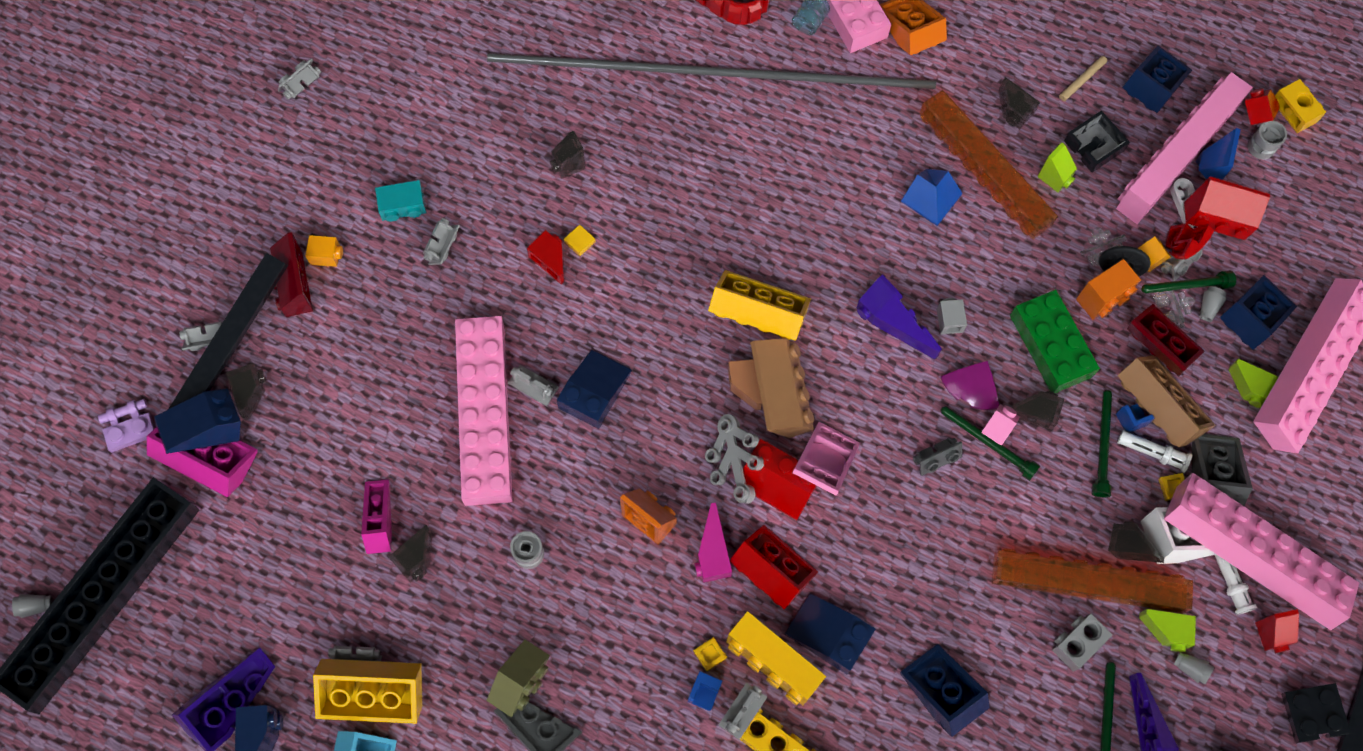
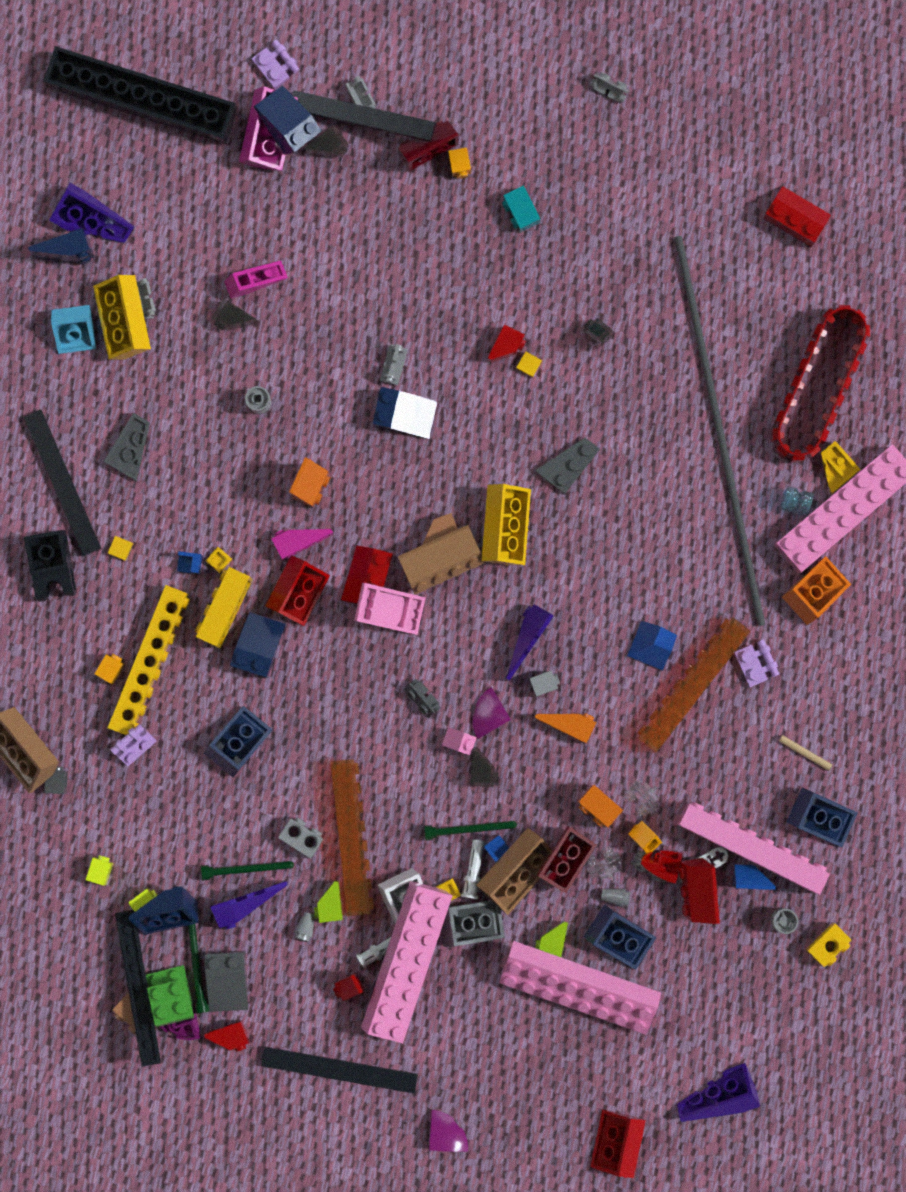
camera: 80 degrees right, 15 degrees up
(28, 605) = (121, 50): light grey cone -> none
(437, 251) = (485, 254): light grey hinge -> none
(483, 411) = (361, 332): bright pink brick -> none
(518, 678) = (158, 423): olive brick -> none
(707, 229) = (568, 466): none -> dark grey wing
(734, 456) = (374, 537): light grey plant -> none
(743, 710) = (178, 593): light grey hinge -> none
(979, 105) = (751, 666): none -> lavender plate
(1008, 293) = (574, 725): none -> orange slope
(1016, 104) = (758, 699): clear smoke slope -> none
(1026, 467) = (431, 770): dark green piece -> none
(1054, 341) = (544, 771): green brick -> none
(1058, 169) = (702, 746): lime slope -> none
(1096, 141) = (741, 774): black piece -> none
(1132, 543) = (388, 863): clear smoke slope -> none
(1137, 259) = (628, 815): black wheel -> none
(1223, 279) = (640, 903): dark green piece -> none
(1261, 106) = (809, 908): red slope -> none
(1315, 712) = (293, 1024): black piece -> none

